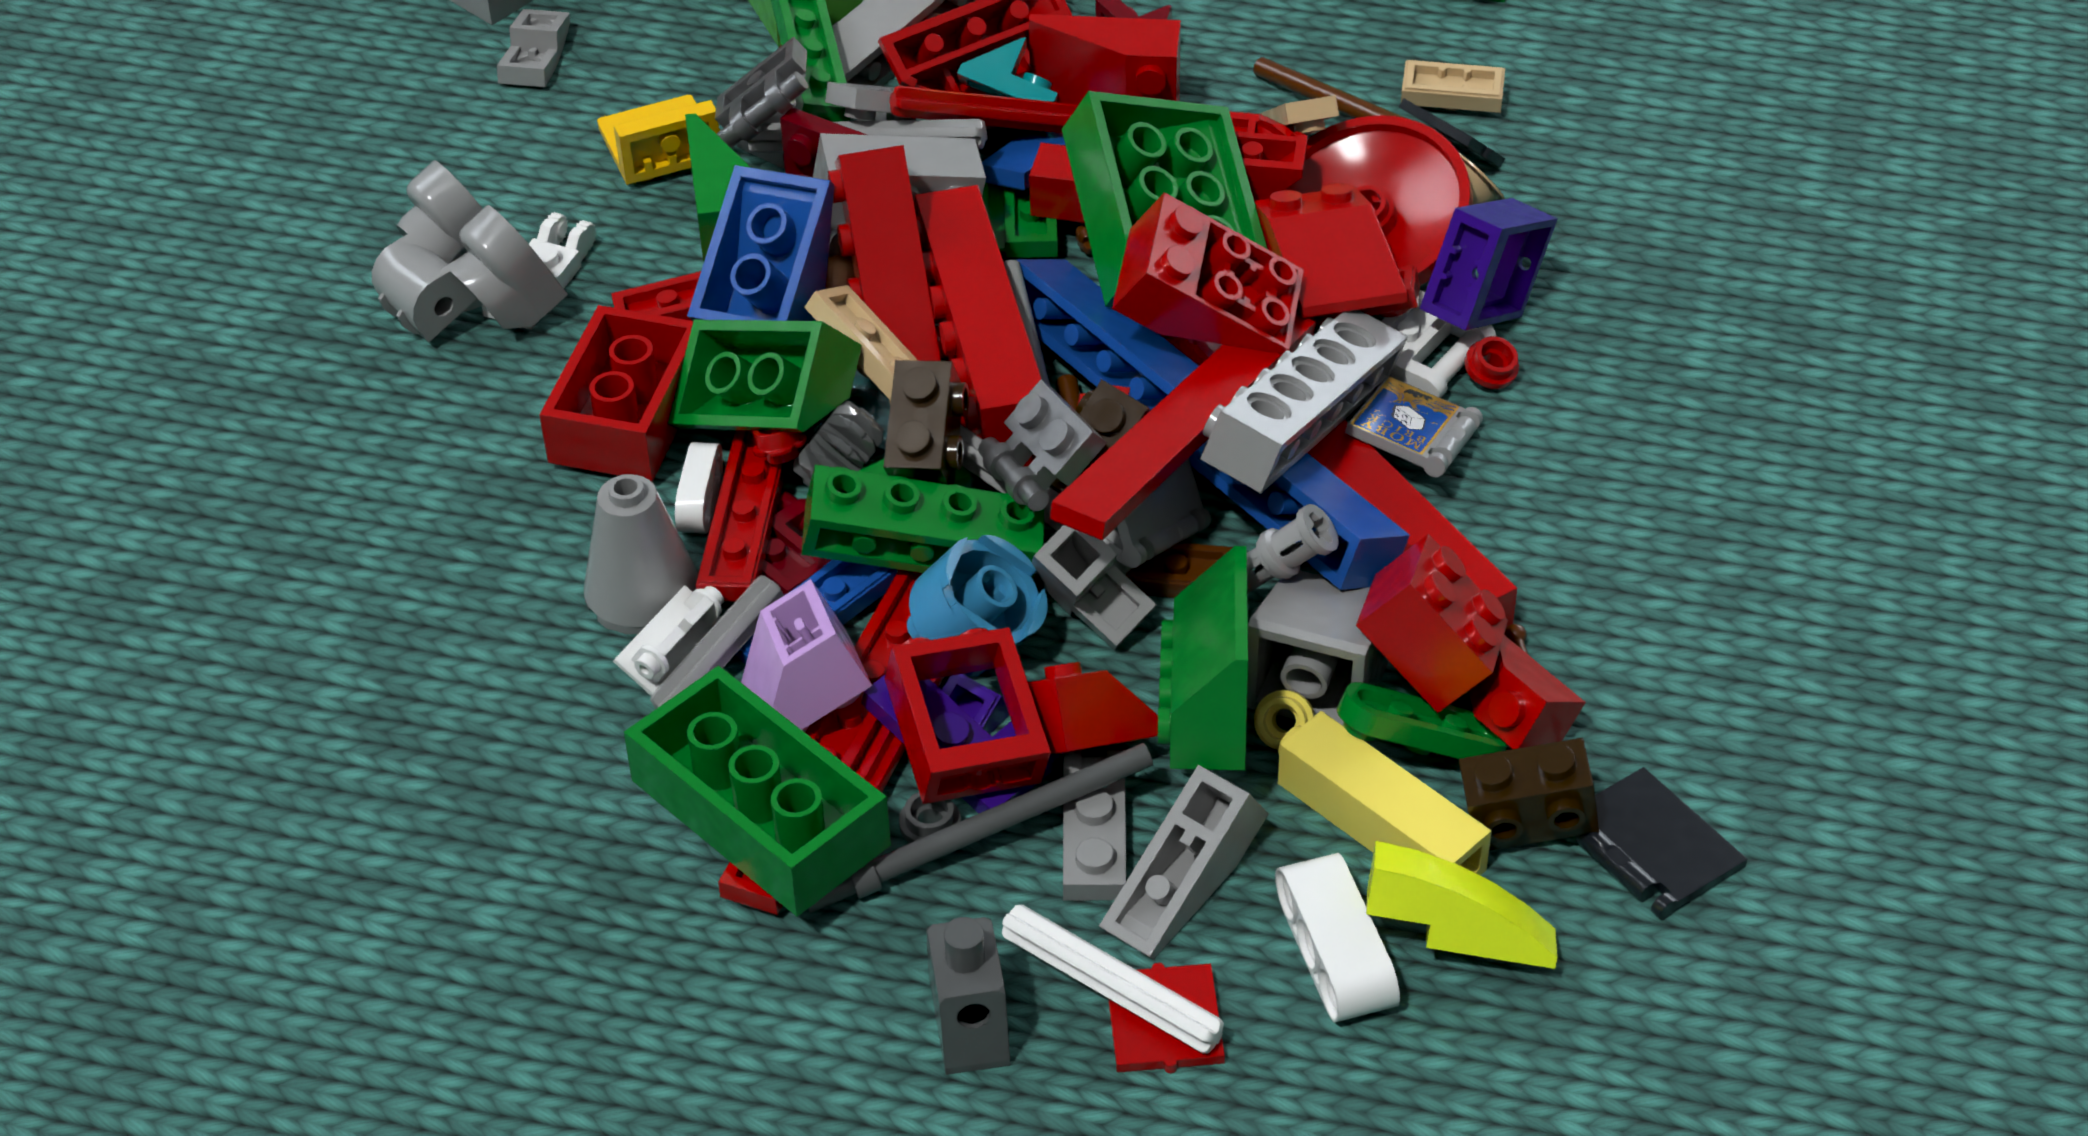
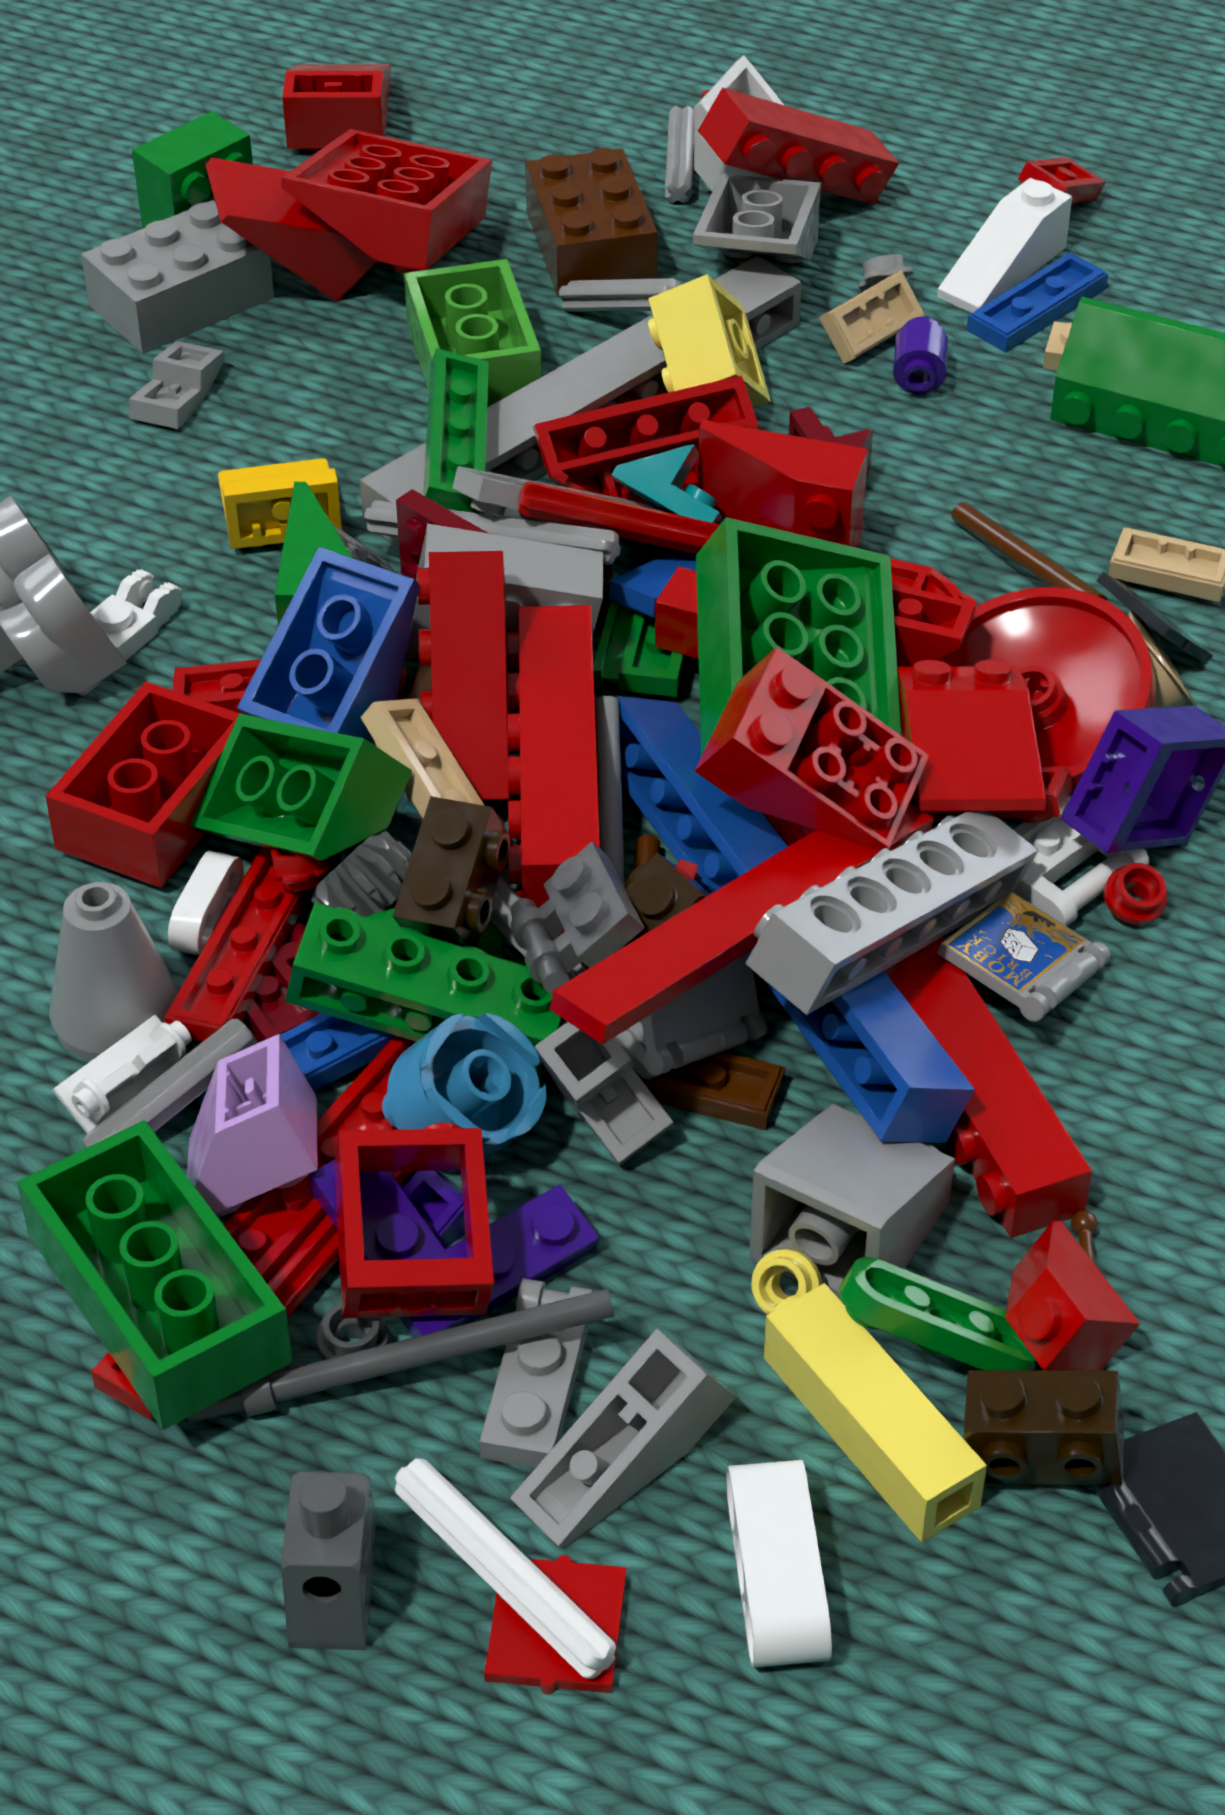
camera: 10 degrees right, 0 degrees up
(762, 93) = (385, 470): flat silver plate -> none
(1089, 709) = (554, 1240): red slope -> none
(1207, 669) = (700, 1217): green slope -> none
(1281, 556) = (837, 1083): light grey pin -> none
(1305, 115) = (982, 577): tan plate -> none
(1433, 622) = (975, 1201): red brick -> none
(1458, 907) = (927, 1554): neon yellow slope -> none

